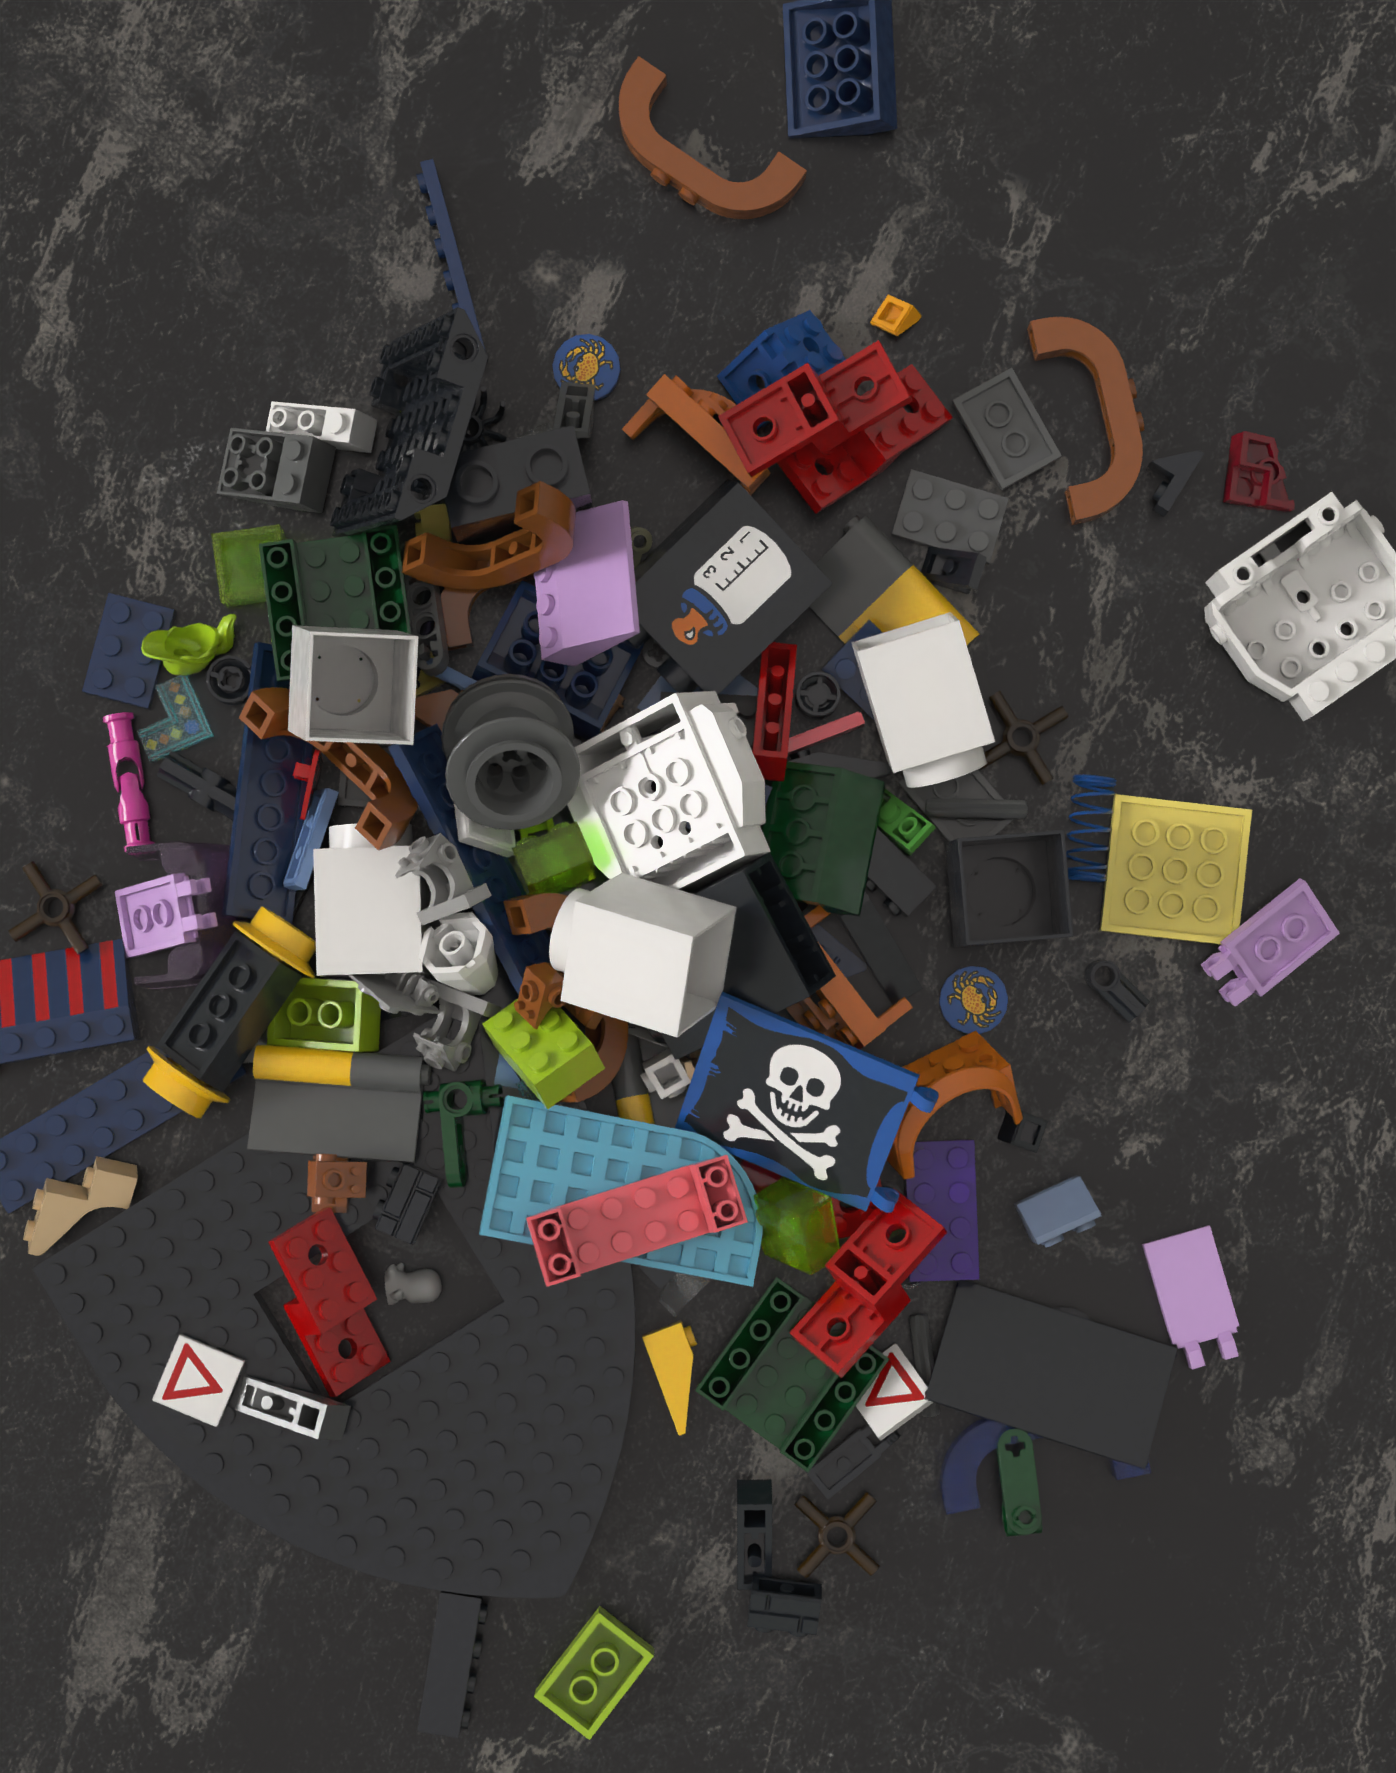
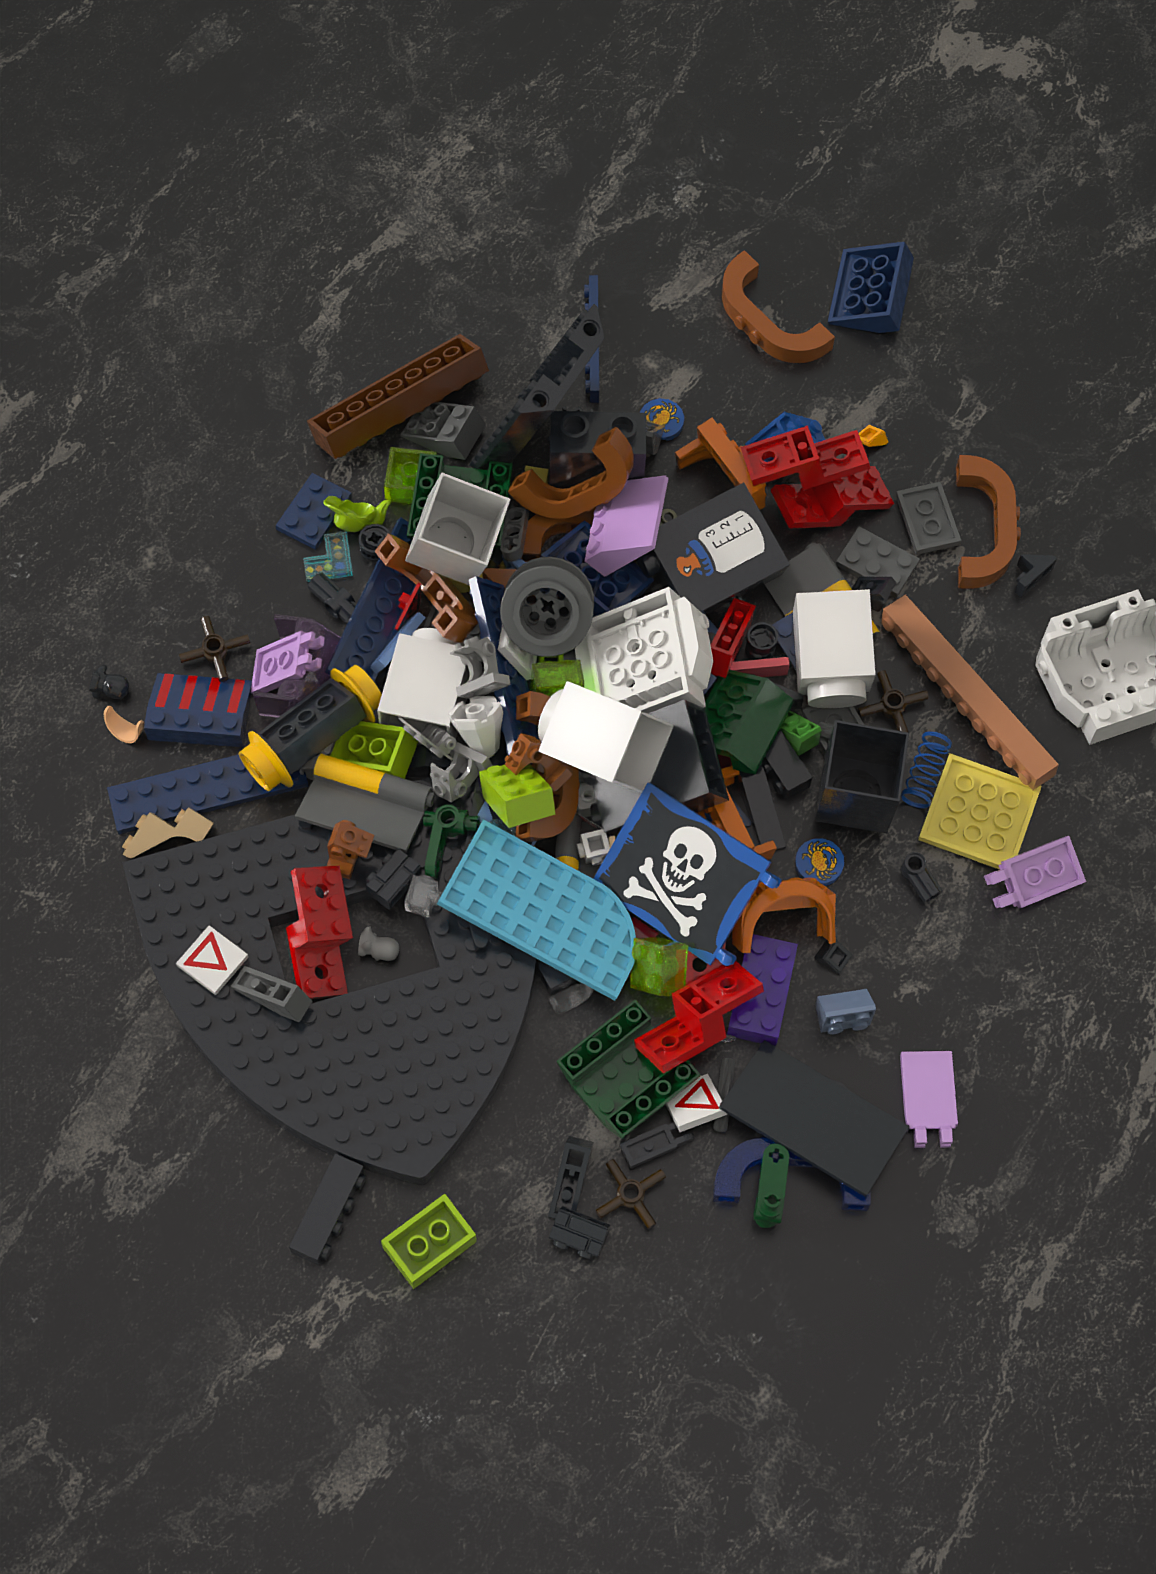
camera: 15 degrees right, 20 degrees down
(133, 807) = (290, 566): dark pink piece -> none
(197, 442) = (398, 396): none -> reddish brown brick
(340, 427) = (491, 408): white slope -> none
(454, 1215) = (422, 895): none -> clear brick
(636, 1219) = (548, 922): coral slope -> none
(672, 1362) = (546, 1042): yellow slope -> none
(1122, 695) = (969, 693): none -> nougat brick
(1255, 474) = (1088, 582): dark red slope -> none

